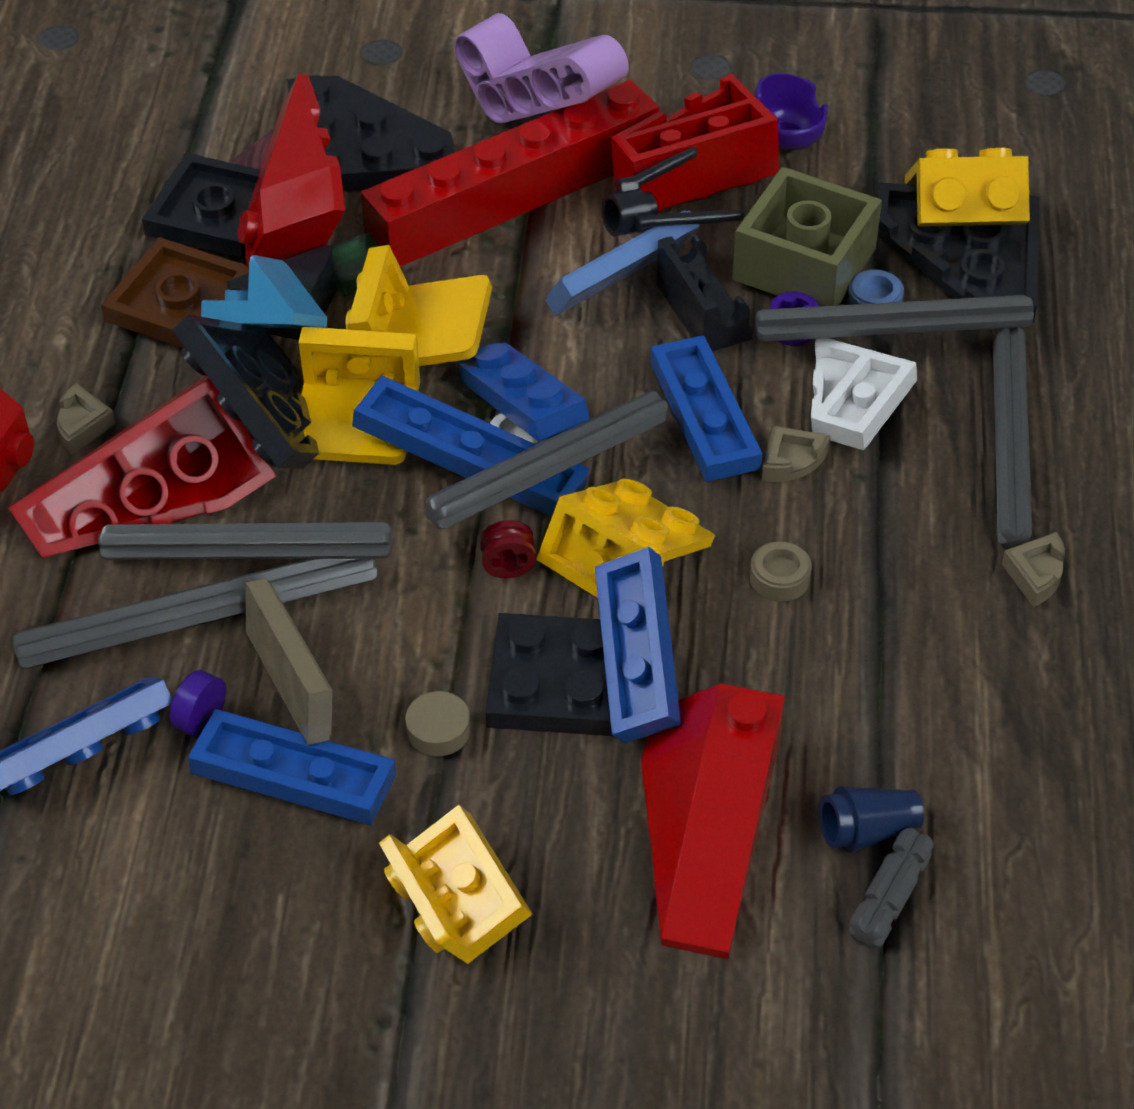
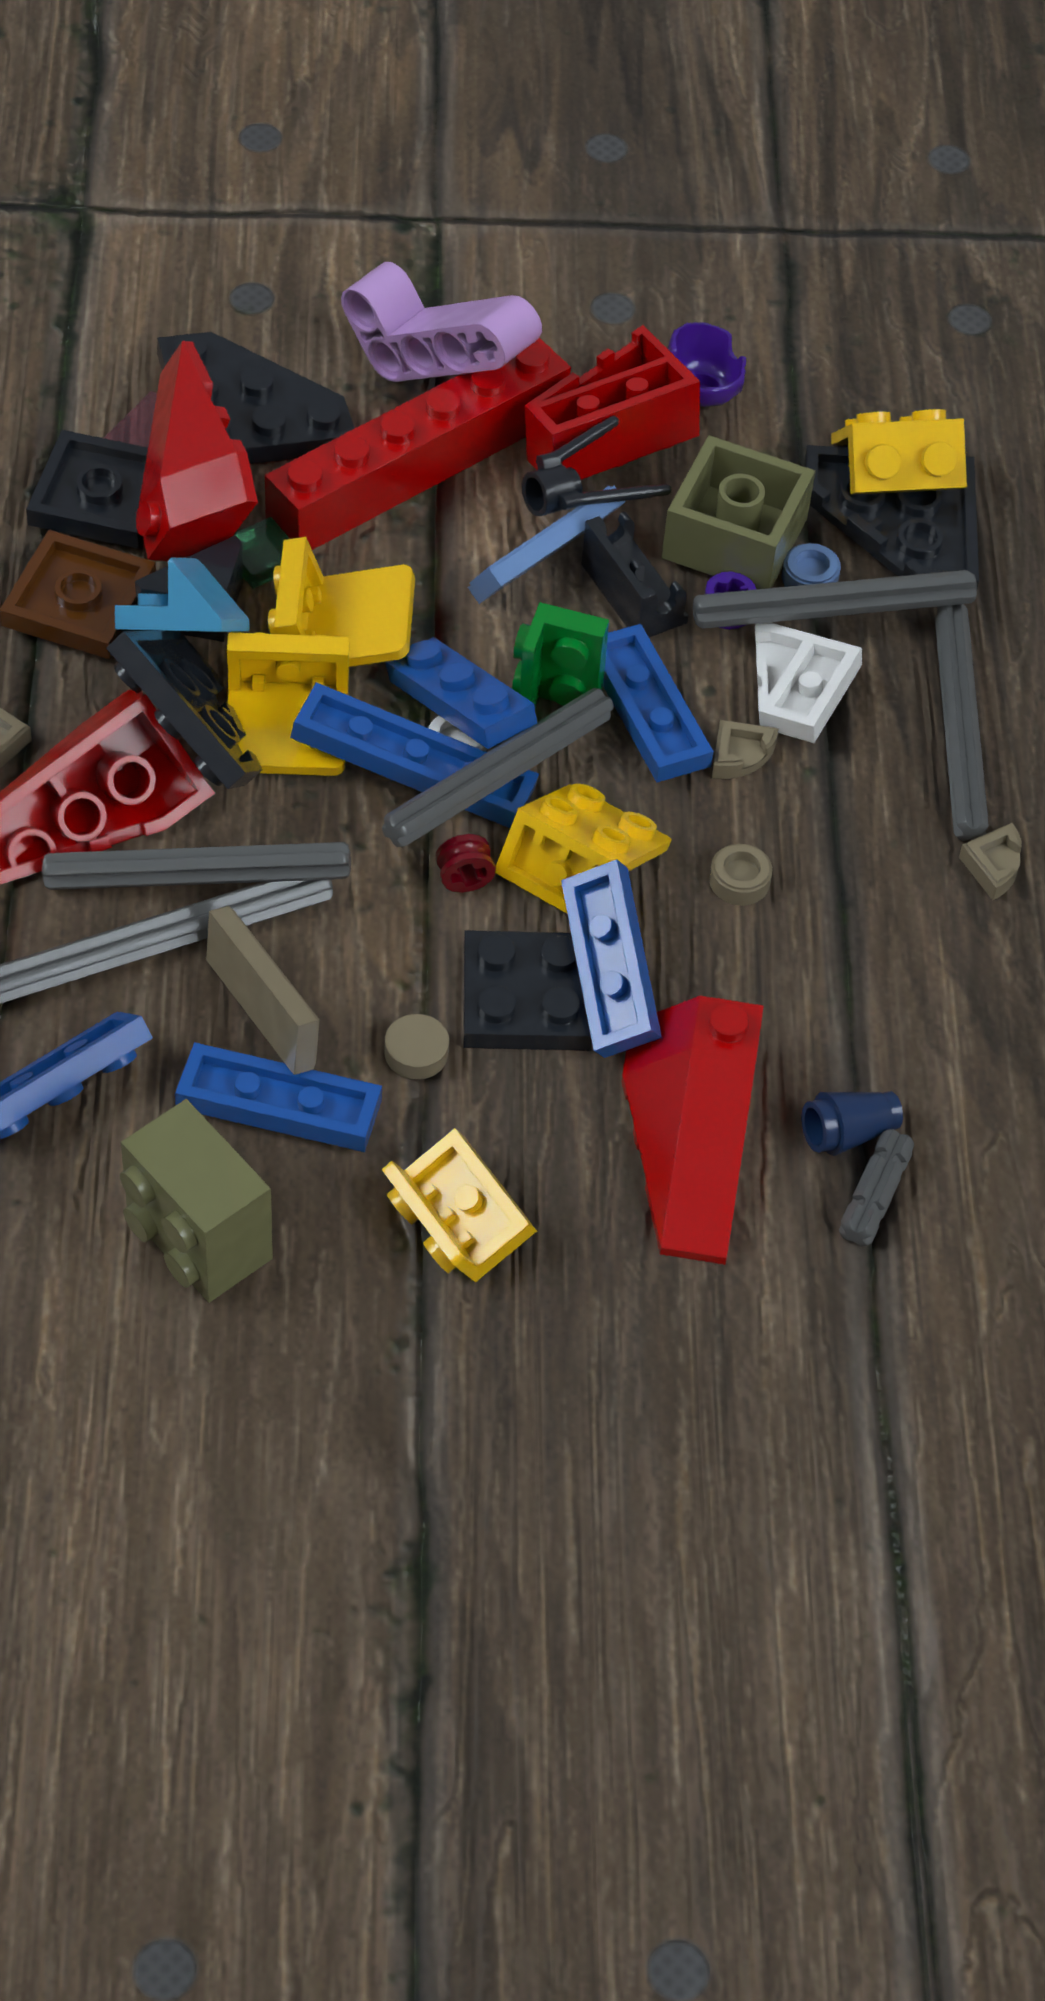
camera: 10 degrees left, 5 degrees up
(184, 866) = (196, 1201): none -> olive brick
(196, 701) = (174, 1037): dark purple tile -> none
(618, 357) = (560, 654): none -> green bracket

